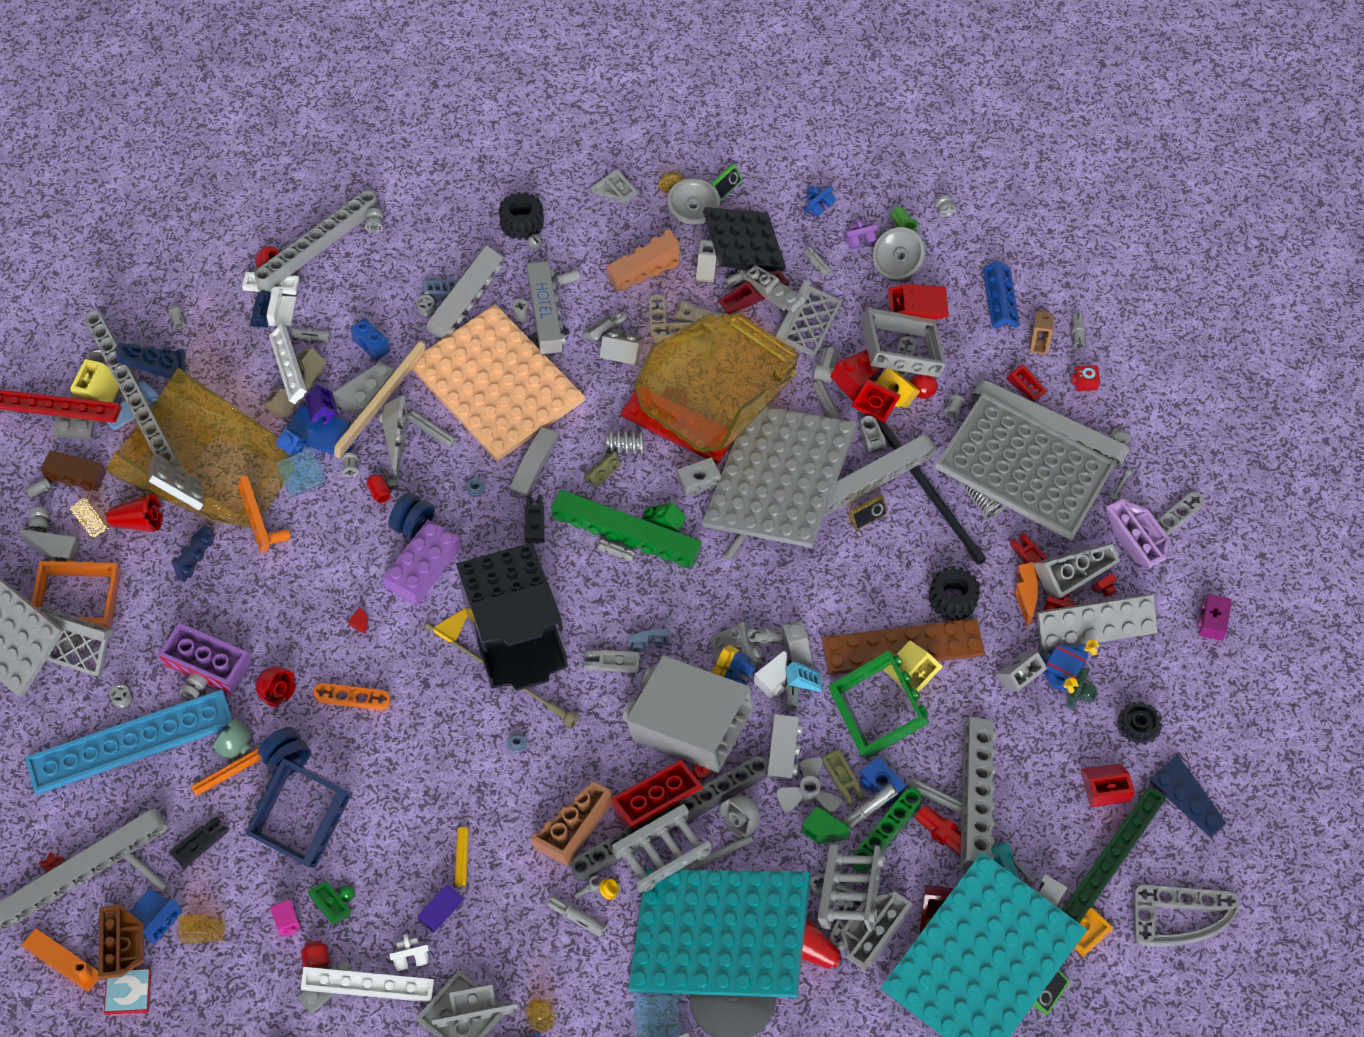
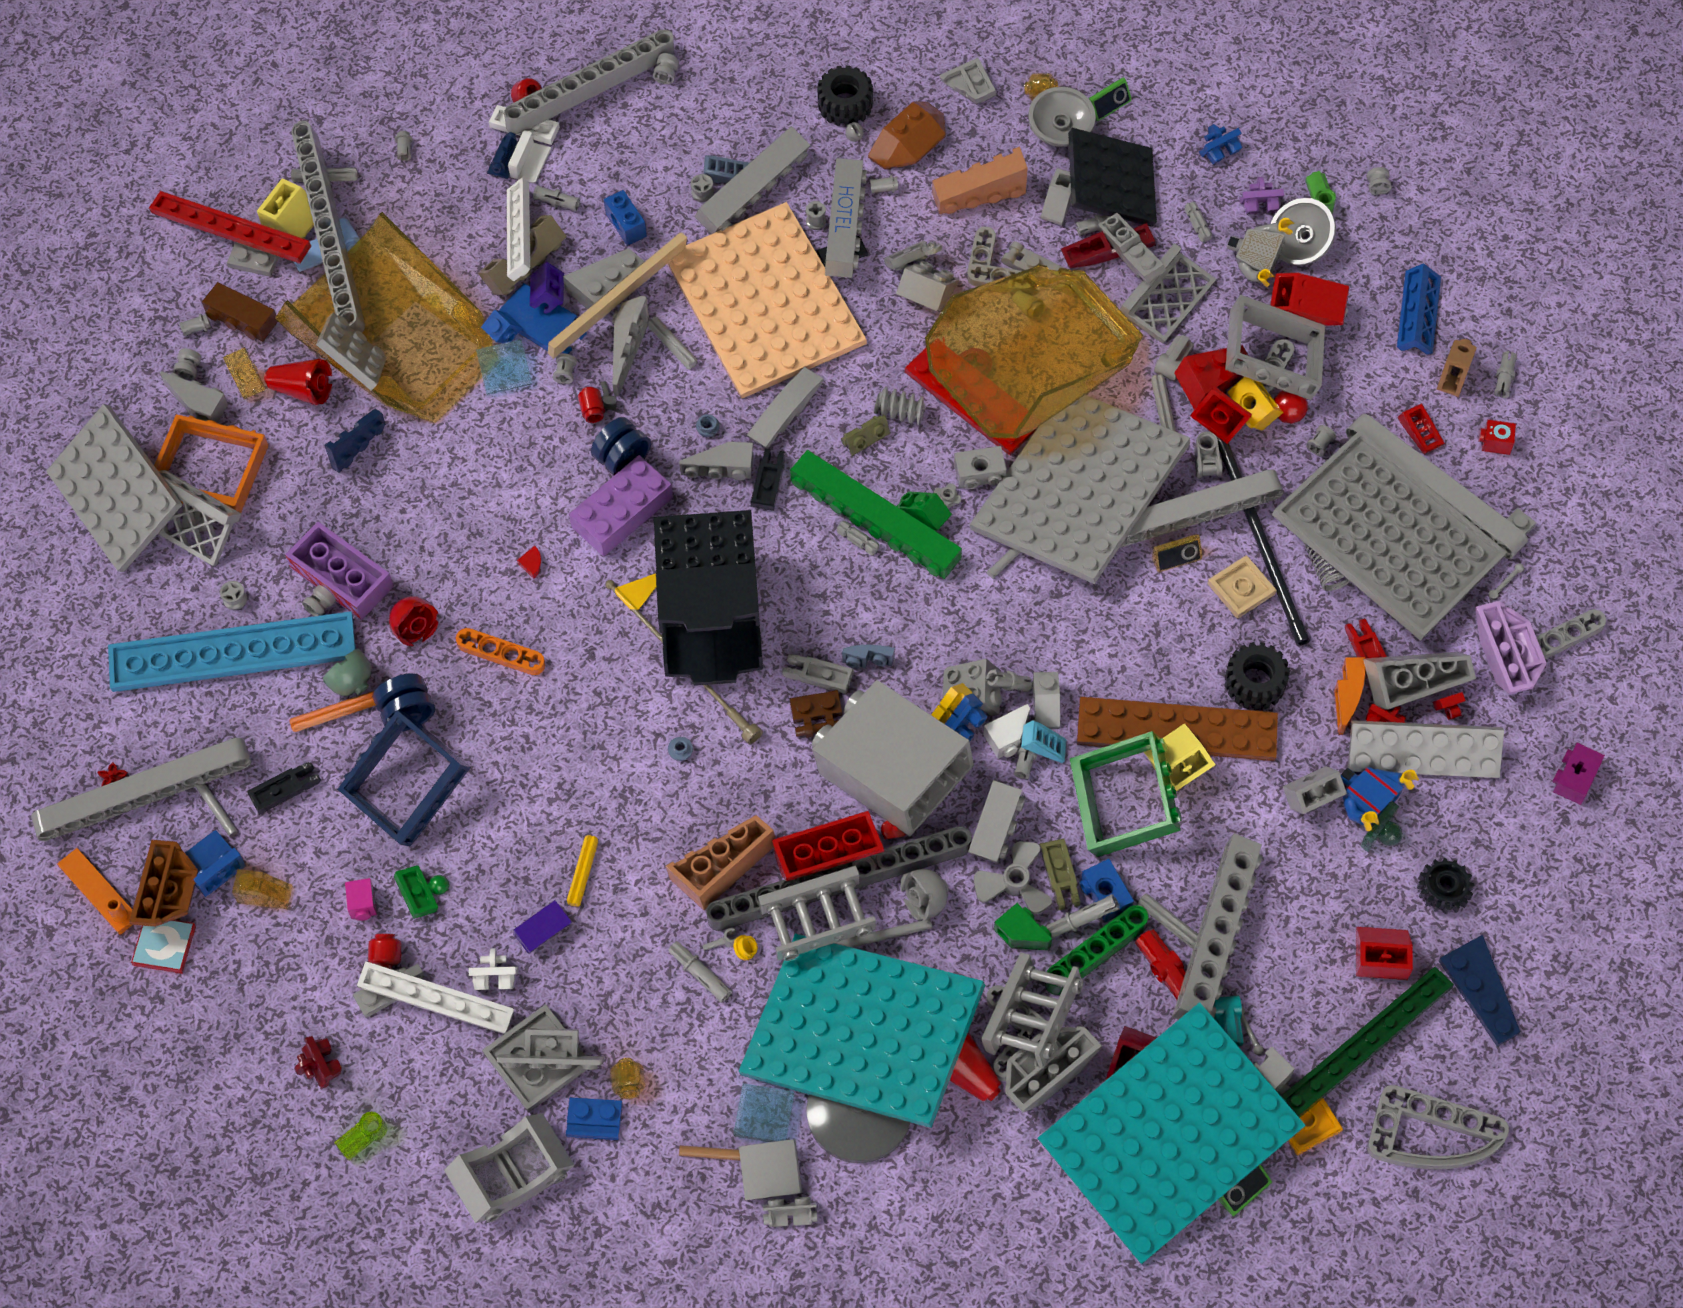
camera: 15 degrees right, 5 degrees up
(152, 360) = (360, 194): dark blue wing -> none
(262, 538) = (441, 439): orange piece -> none
(498, 510) = (725, 460): none -> light grey slope
(578, 237) = (909, 136): none -> dark orange wedge
(617, 688) = (815, 707): none -> reddish brown plate
(680, 499) = (950, 490): none -> light grey plate
(871, 272) = (1260, 250): none -> light grey torso
(923, 528) = (1241, 587): none -> tan plate

